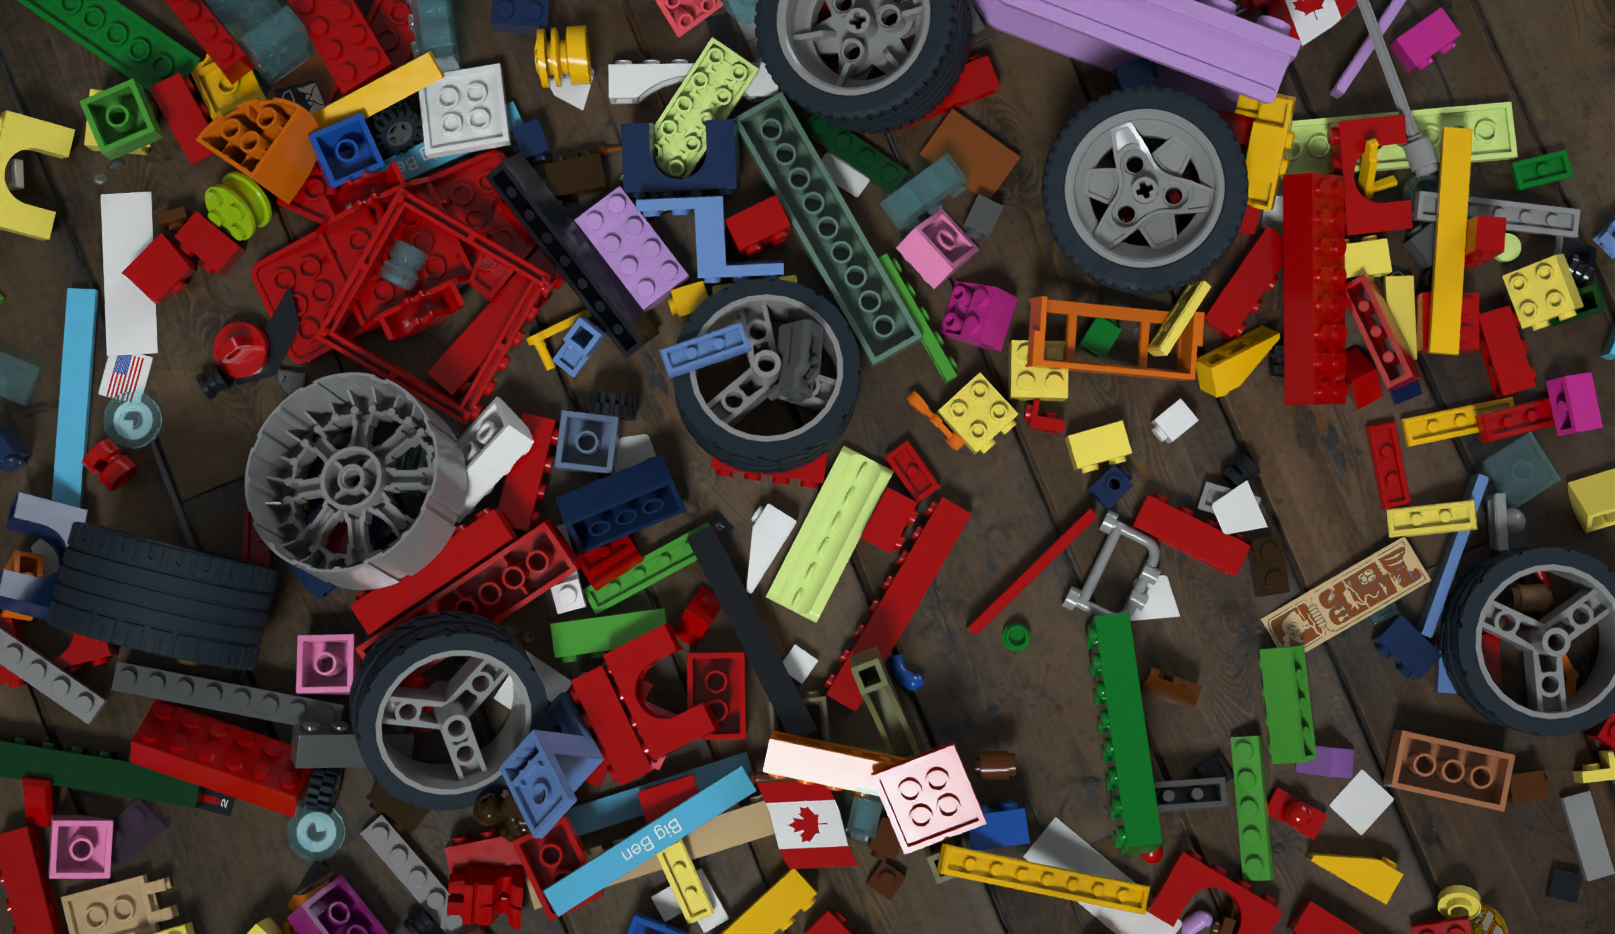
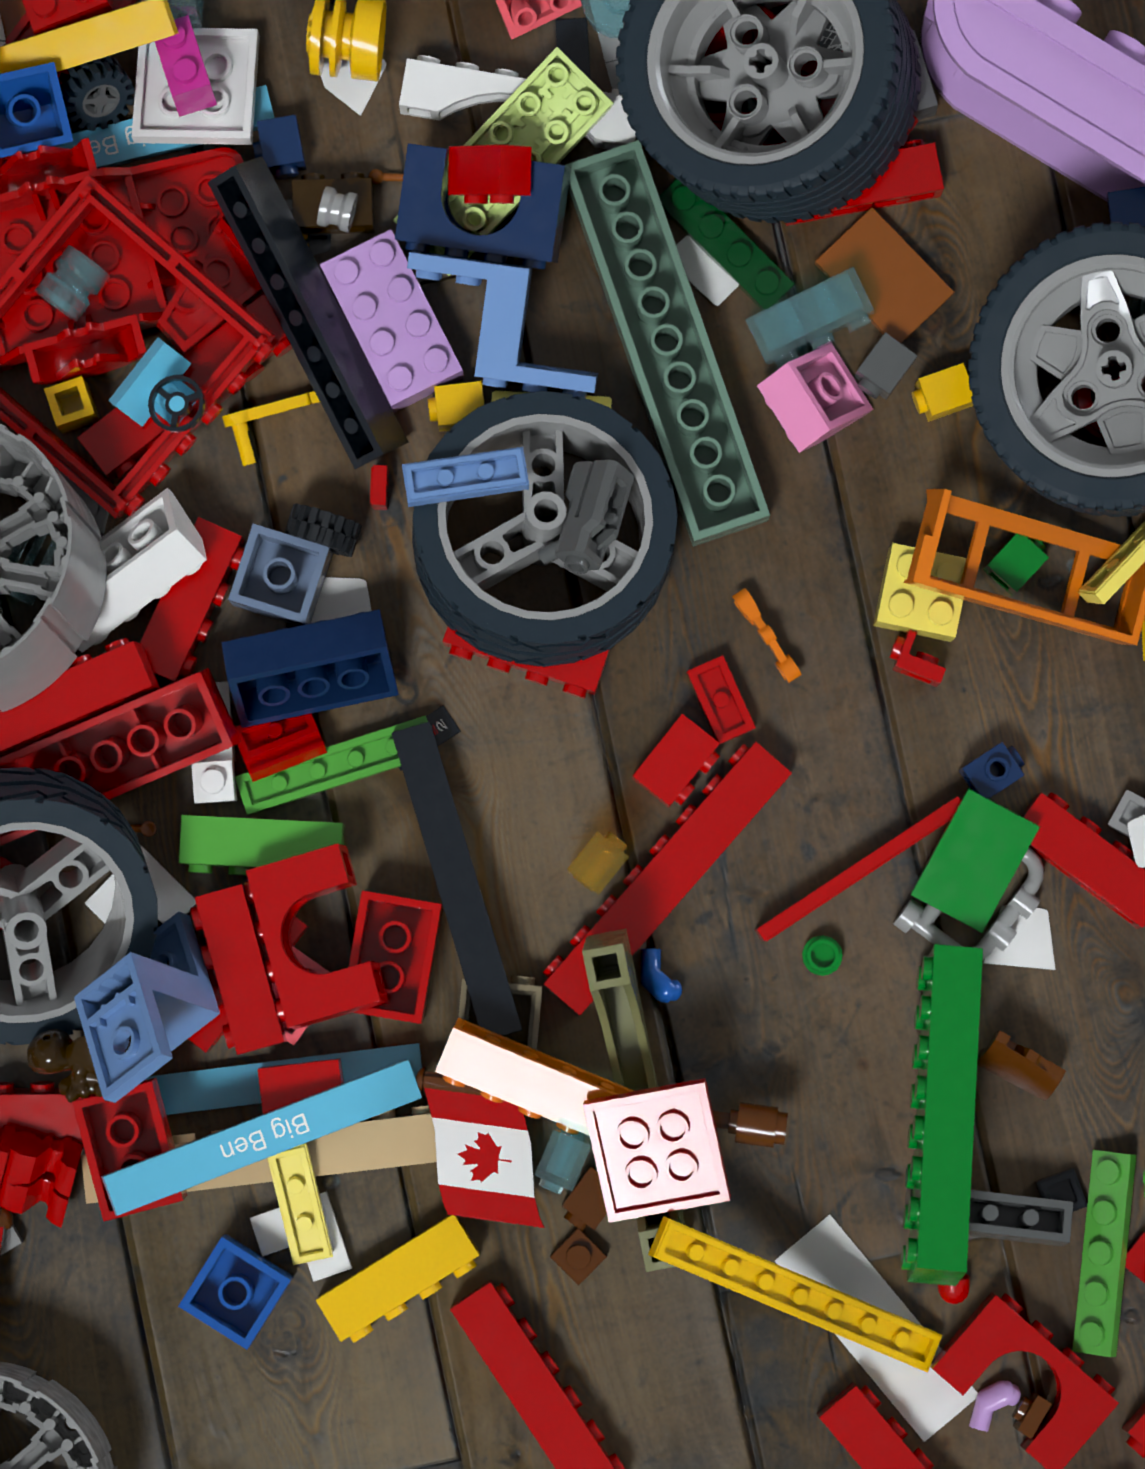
camera: 15 degrees right, 0 degrees up
(419, 350) = (72, 404): none -> yellow brick
(454, 101) = (185, 69): none -> dark pink brick
(477, 327) = (158, 387): none -> medium azure piece
(579, 179) = (337, 209): none -> light grey wheel
(580, 344) = (296, 438): medium blue brick -> none
(645, 368) = (379, 487): none -> red tile
(680, 133) = (489, 171): none -> red brick
(697, 617) = (386, 845): red slope -> none
(758, 228) = (572, 323): red brick -> none
(768, 537) = (504, 753): white slope -> none
(799, 663) = (515, 935): white tile -> none
(829, 534) = (590, 764): yellowish green plate -> none
(849, 601) = (599, 862): none -> clear yellow brick
(931, 341) = (782, 524): bright green plate -> none
(978, 315) = (854, 500): dark pink slope -> none
(978, 414) = (827, 637): light yellow brick -> none
(1004, 827) = (750, 1214): blue brick -> none
(1026, 228) = (943, 392): none -> yellow brick
(1098, 446) = (986, 713): light yellow brick -> none
(1110, 551) = (975, 860): none -> green tile
(1173, 422) = (1096, 698): white brick -> none

